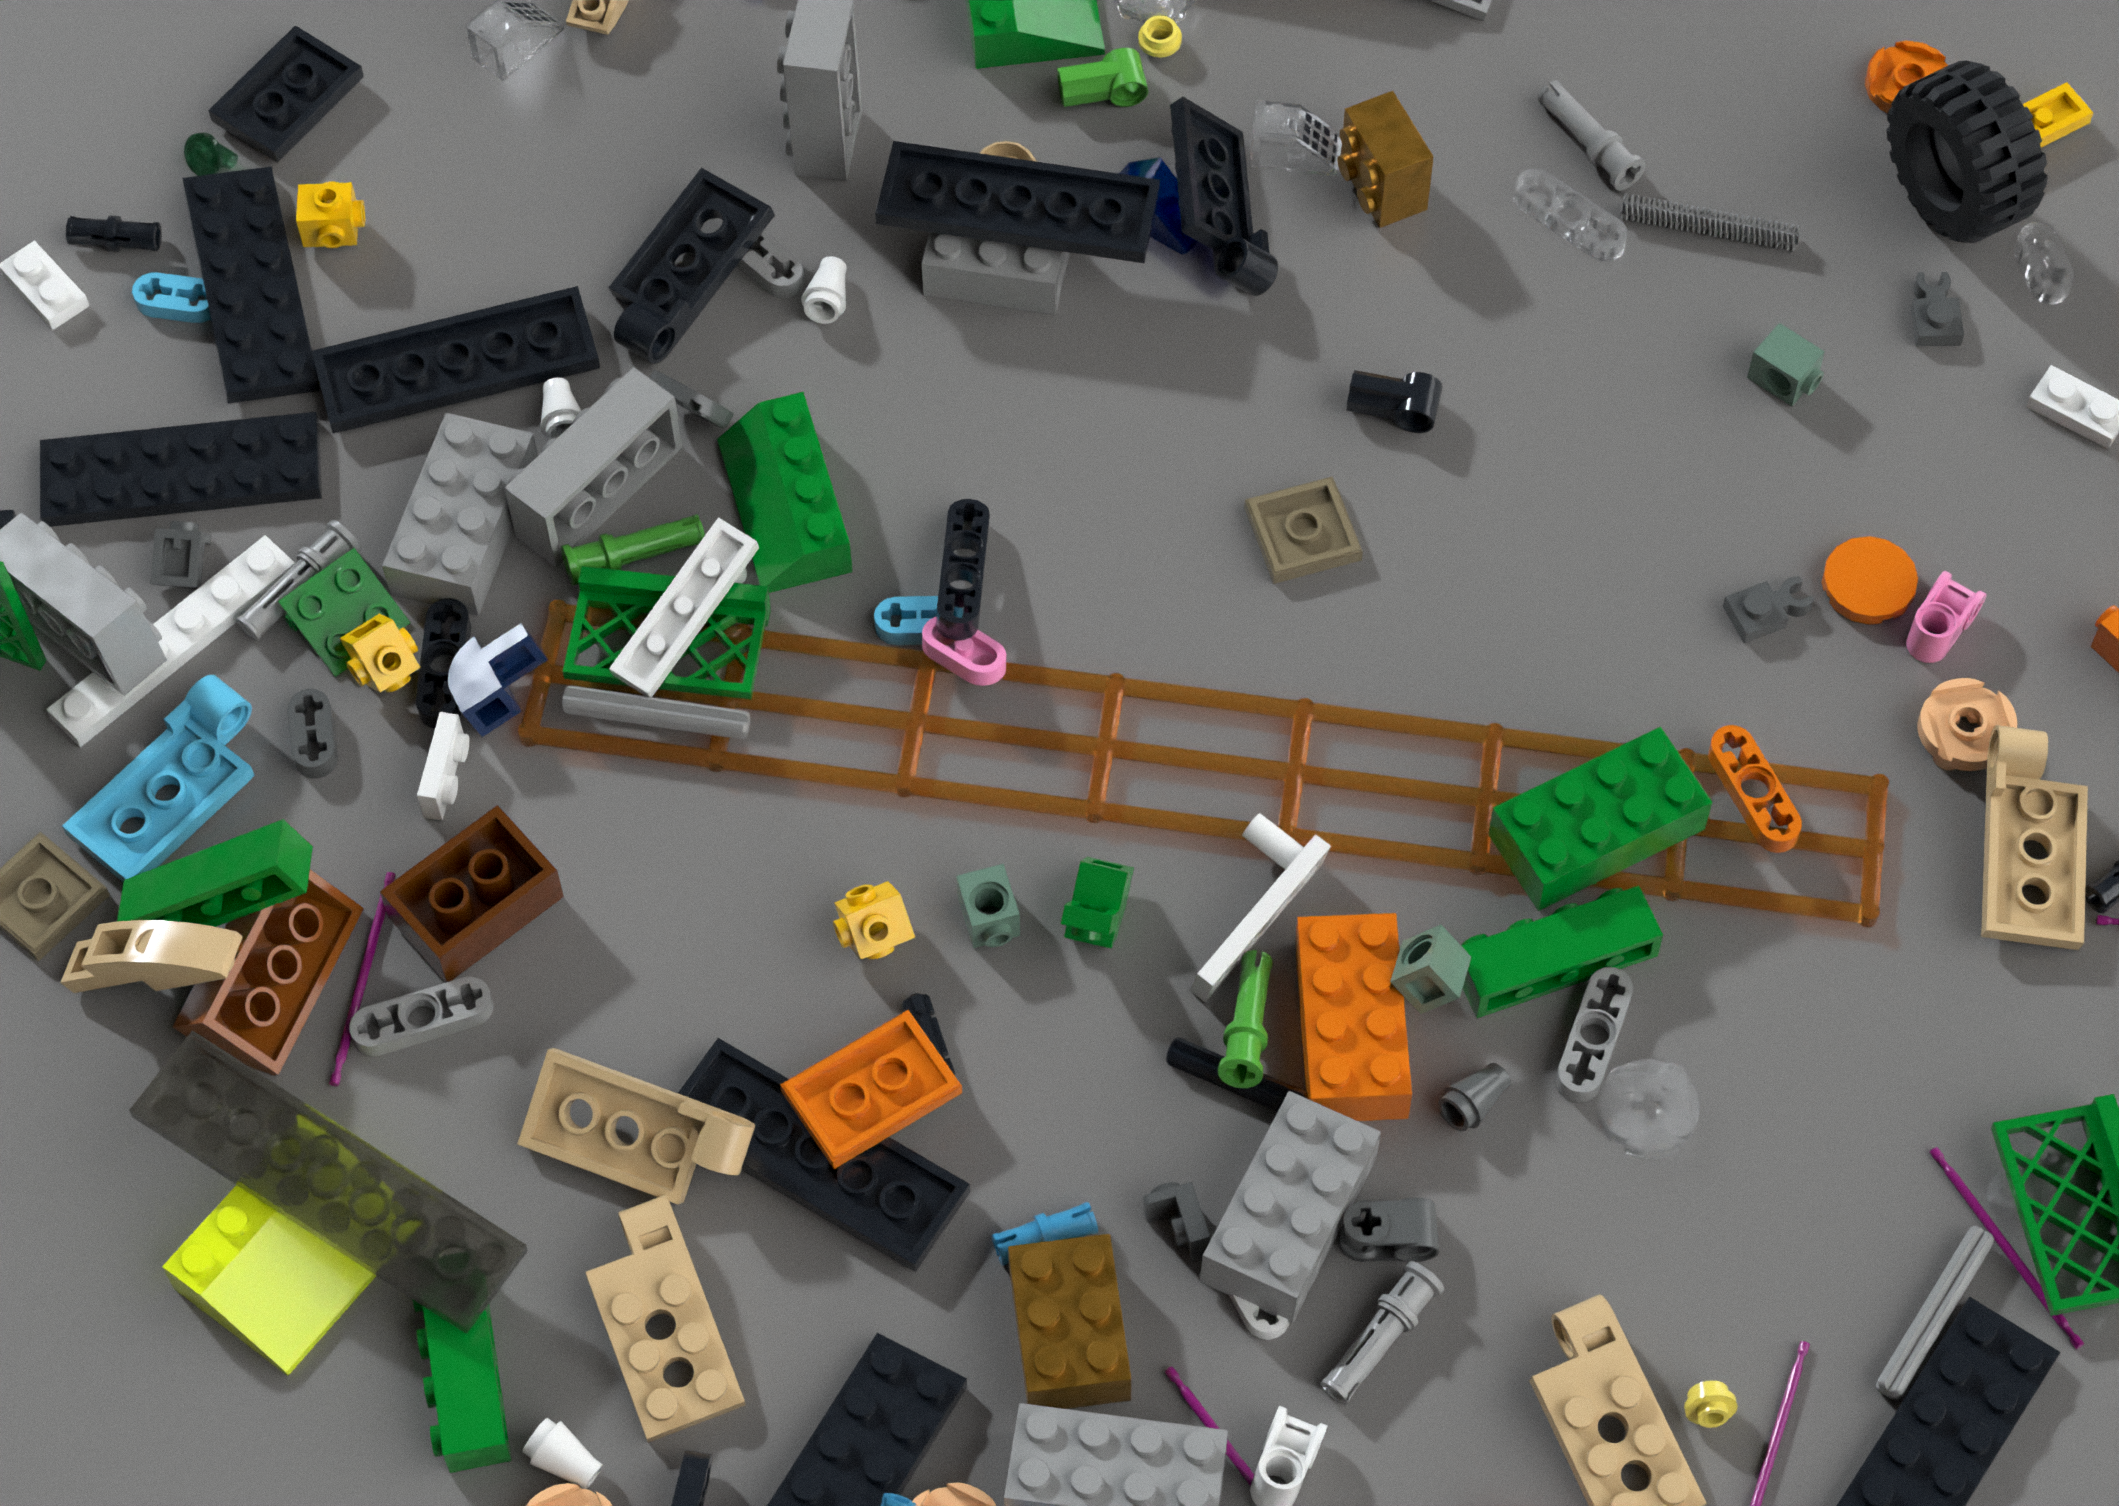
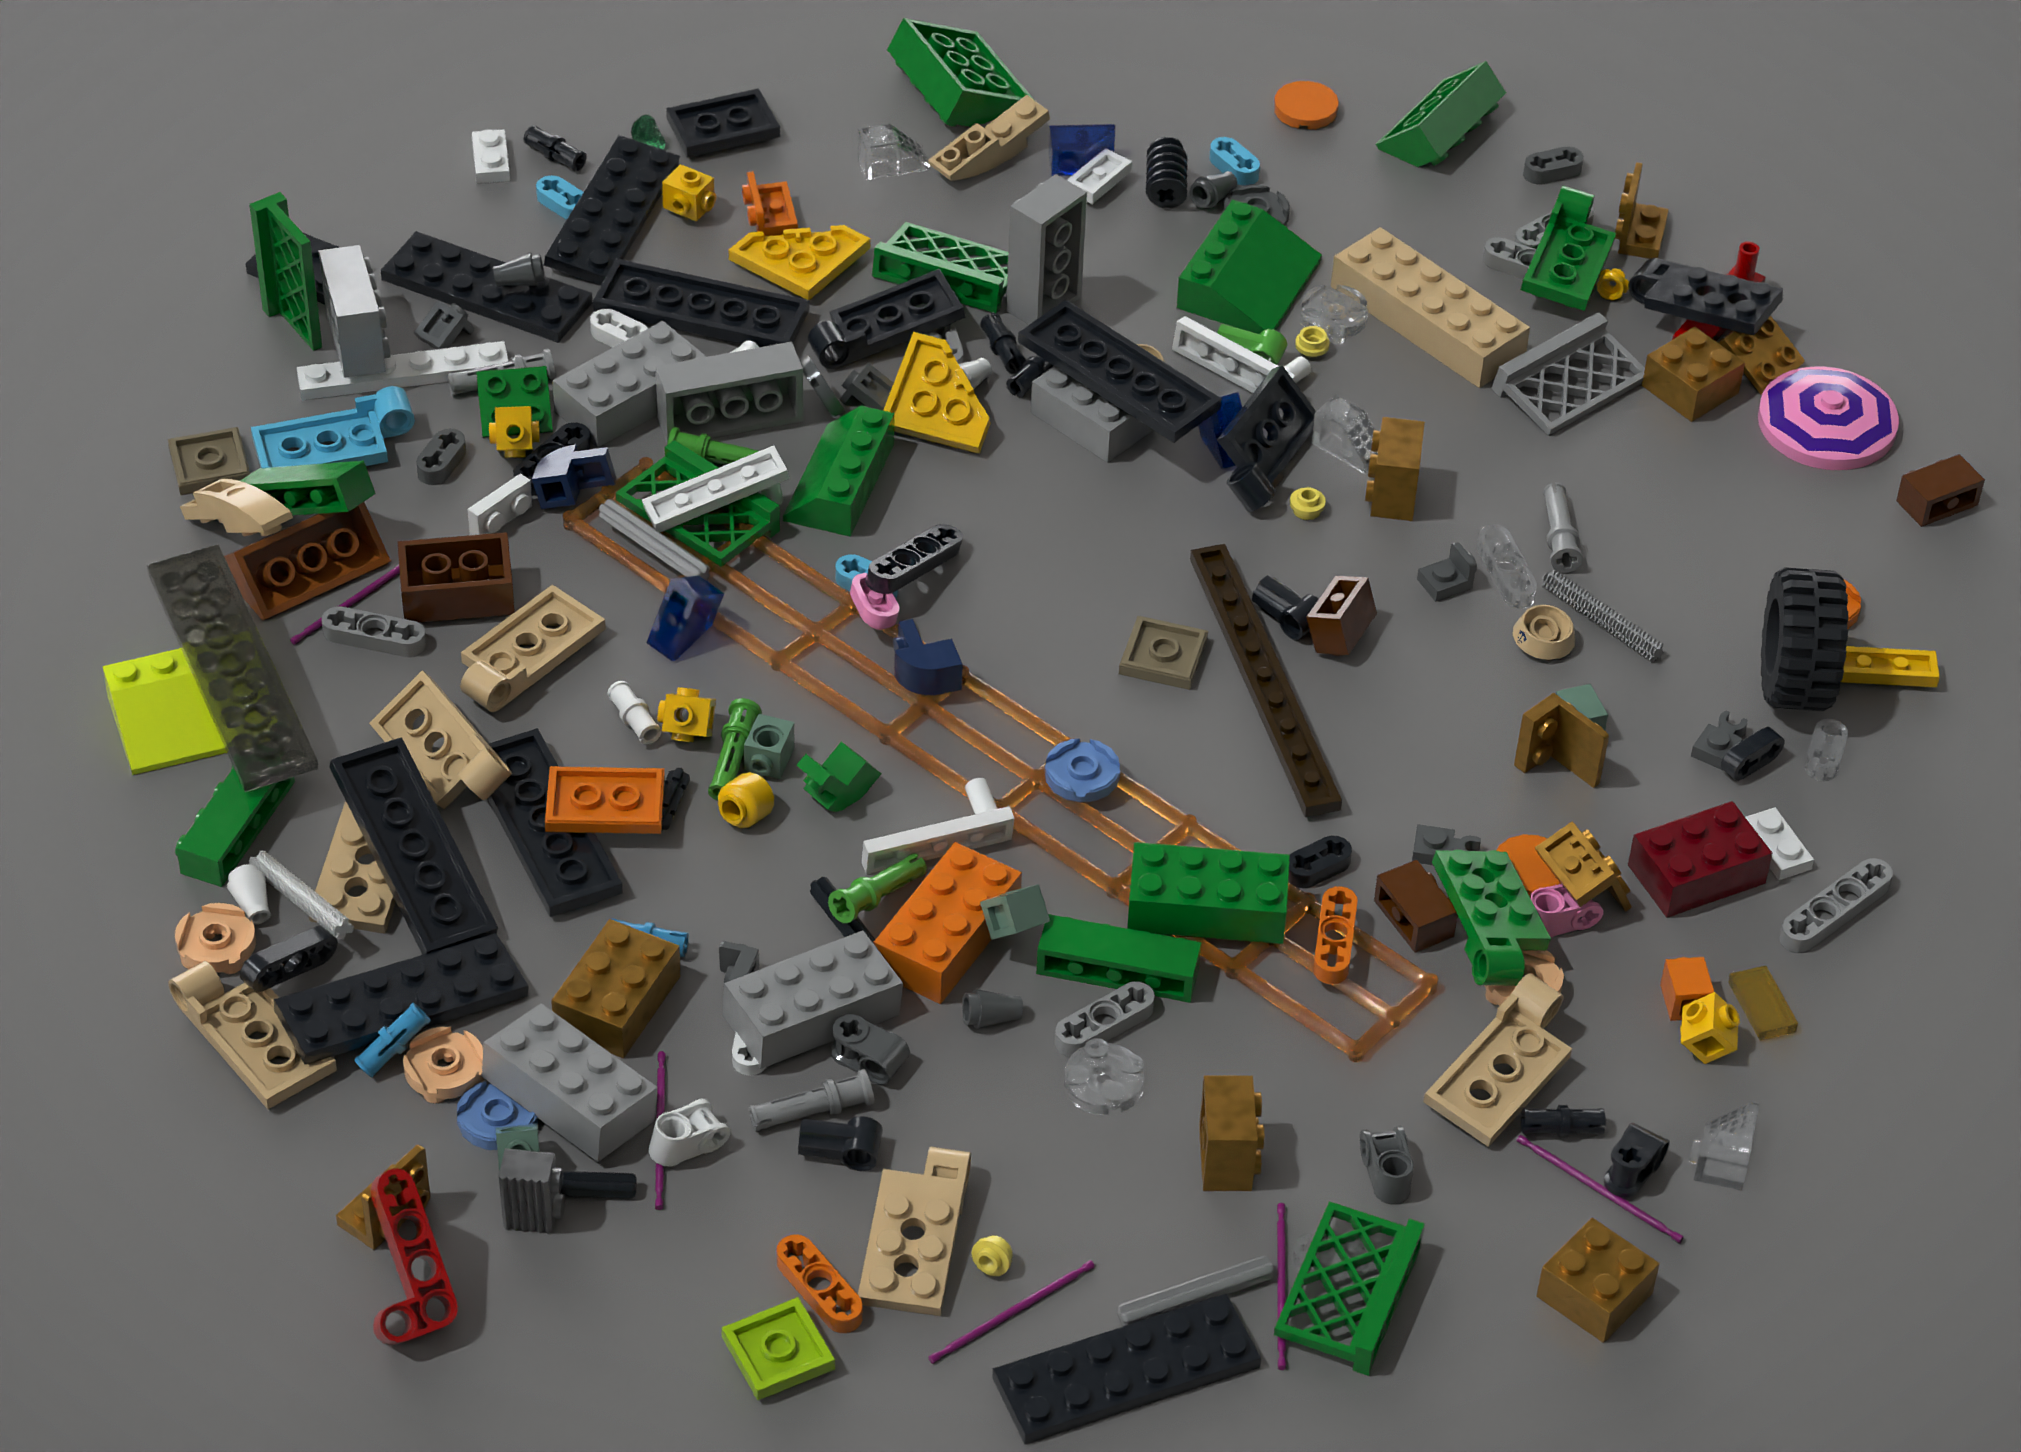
camera: 30 degrees right, 15 degrees down
(224, 433) = (521, 271): none -> dark grey cone
(386, 445) = (613, 327): none -> white beam
(433, 182) = (769, 206): none -> orange bracket
(517, 230) = (800, 259): none -> yellow plate
(622, 973) = (504, 670): none -> tan hinge
(627, 1423) = (302, 895): none -> white axle
(663, 179) = (900, 262): none -> green fence
(717, 1288) = (412, 846): none -> black plate
(733, 366) = (868, 387): none -> dark grey bracket
(769, 793) = (684, 615): none -> clear blue slope
(803, 949) = (634, 712): none -> white pin
(823, 340) = (936, 398): none -> yellow plate
(830, 221) = (1002, 342): none -> black pin
(891, 251) = (1031, 370): none -> black pin
(941, 913) = (736, 724): none -> bright green pin
(1018, 992) = (745, 800): none -> yellow head
(1083, 707) = (926, 667): none -> dark blue brick
(1100, 109) = (1227, 357): none -> white piece
(1309, 259) = (1307, 503): none -> light yellow plate
(1343, 736) = (1082, 770): none -> medium blue tile
(1438, 505) = (1266, 681): none -> dark brown plate
(1461, 1357) = (852, 1143): none -> black piece
(1465, 380) = (1342, 615): none -> reddish brown brick
(1522, 259) = (1449, 575): none -> dark grey bracket
(1649, 698) = (1318, 862): none -> black beam
(1672, 279) = (1545, 632): none -> tan hat
(1801, 700) = (1415, 905): none -> reddish brown brick
(1812, 406) = (1566, 735): none -> pearl gold bracket
(1843, 1105) = (1230, 1133): none -> pearl gold brick
(1919, 687) = (1493, 913): none -> green hinge
(1944, 561) = (1582, 867): none -> pearl gold bracket
(1983, 311) = (1752, 753): none -> black beam
(1999, 1026) = (1388, 1163): none -> dark grey piece
(2031, 474) = (1699, 859): none -> dark red brick

